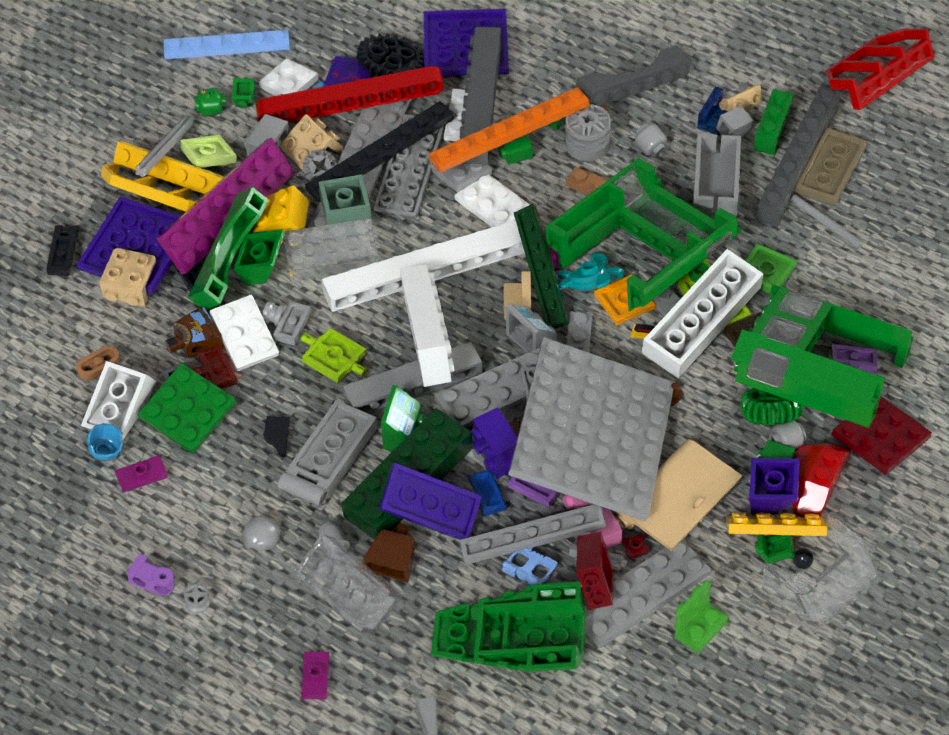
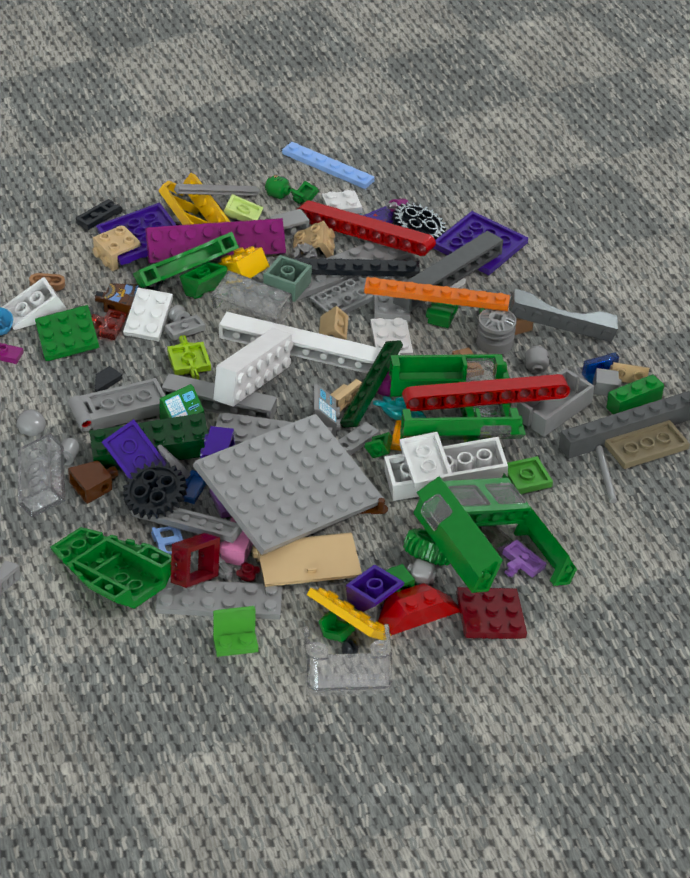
camera: 35 degrees right, 10 degrees down
(348, 48) = (392, 205): none -> piece
(427, 225) = (334, 323): none -> tan panel
(459, 481) = (168, 457): none -> light grey slope
(498, 518) = (155, 490): none -> black gear
(611, 328) = (379, 445): none -> green bracket
(665, 209) = (485, 392): none -> red beam
(690, 317) = (425, 459): none -> white plate

